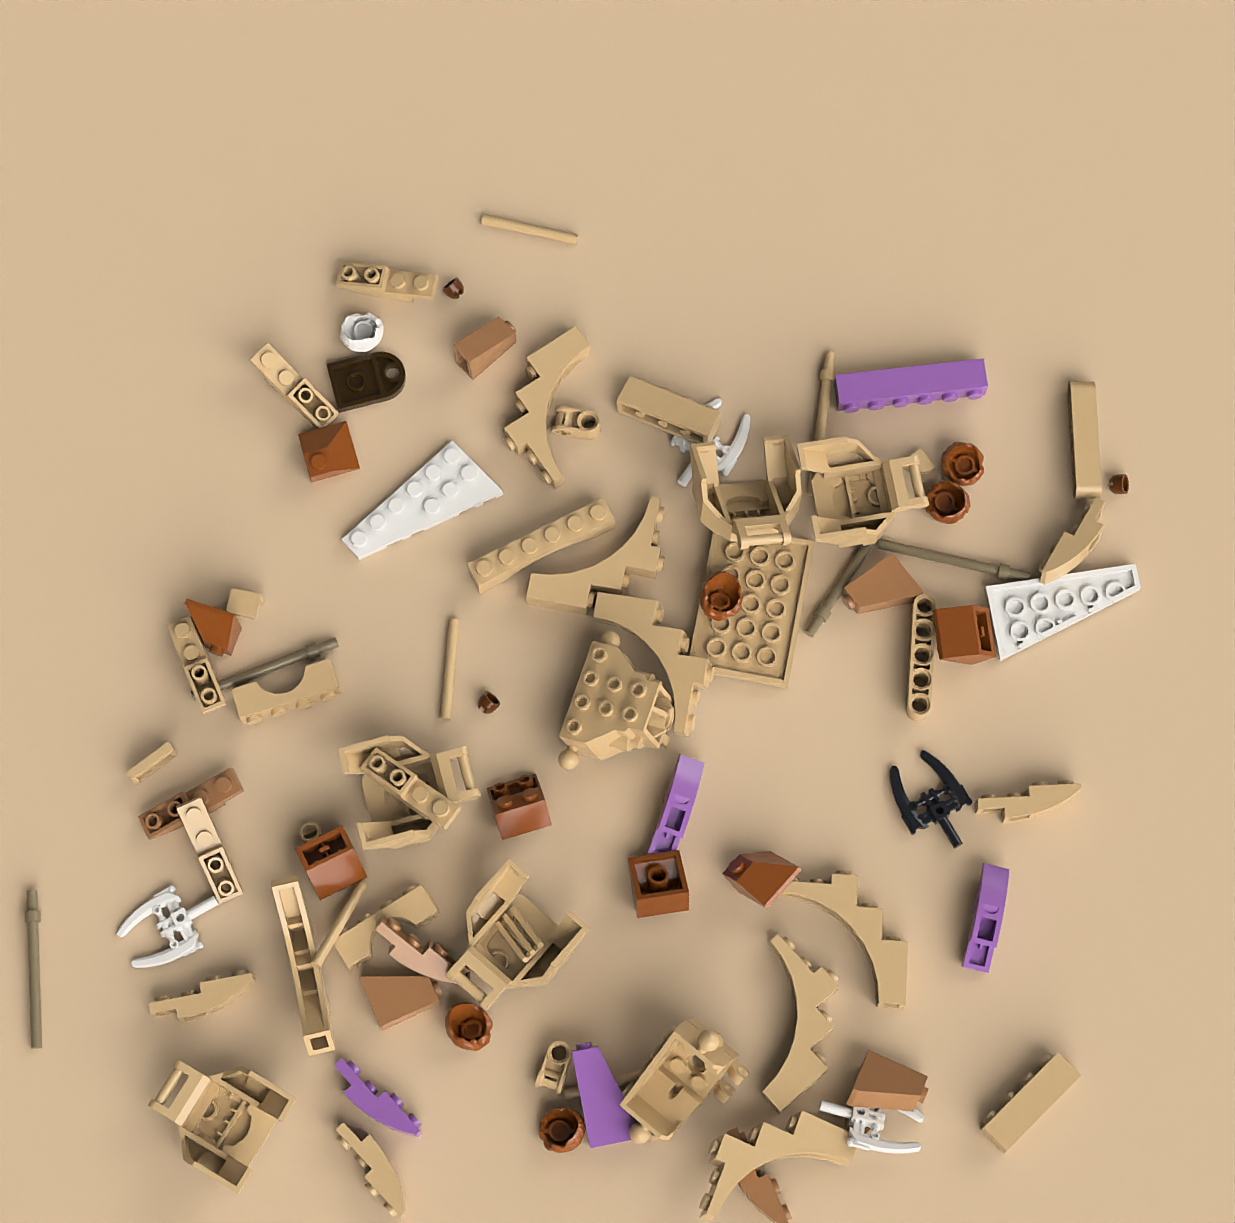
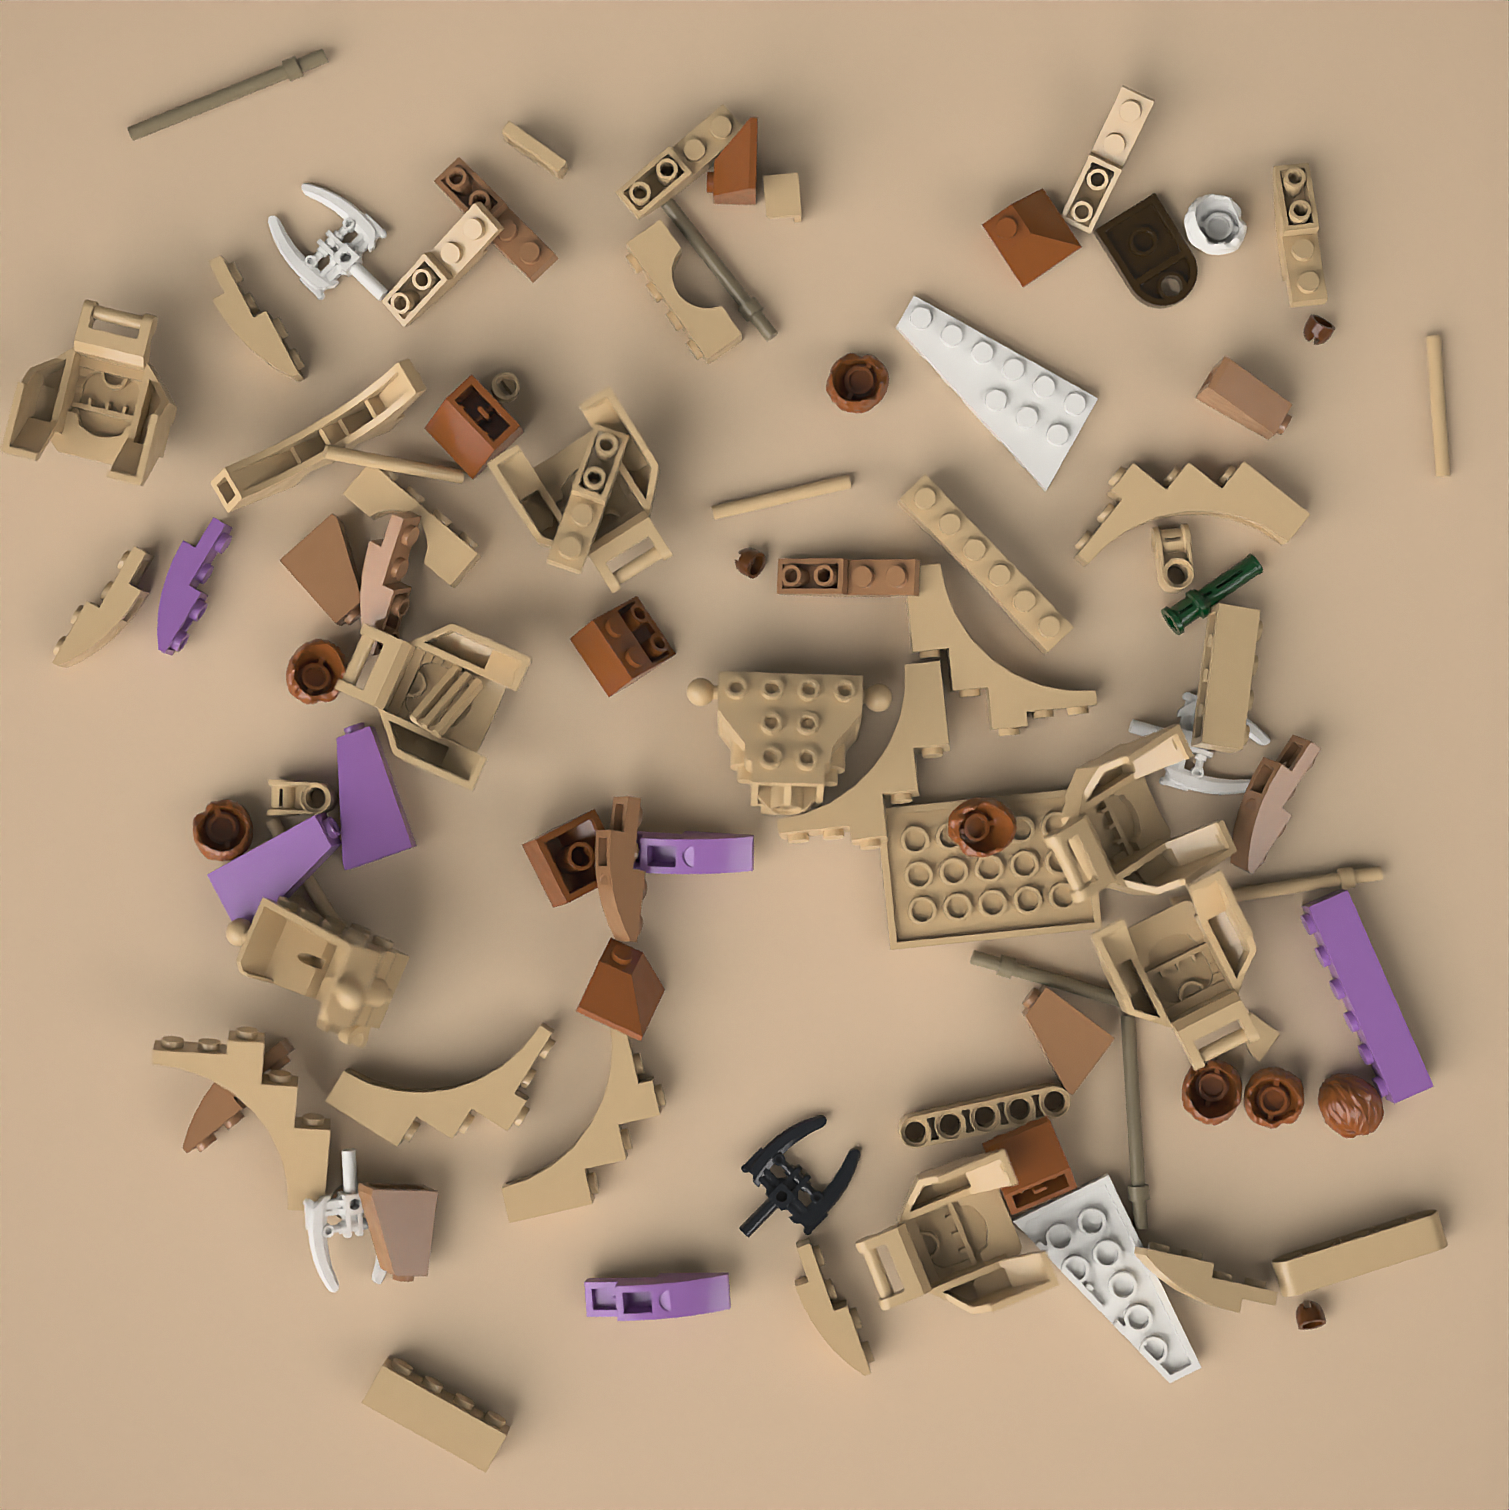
camera: 75 degrees right, 15 degrees up
(388, 593) = (857, 382): none -> dark orange hair
(521, 638) = (848, 577): none -> medium nougat slope
(572, 1017) = (369, 801): none -> medium lavender slope
(611, 415) = (1198, 603): none -> dark green pin
(681, 853) = (618, 884): none -> medium nougat slope
(765, 415) = (1261, 810): none -> medium nougat slope
(982, 417) = (1350, 1105): none -> dark orange hair
(1002, 696) = (959, 1241): none -> tan piece

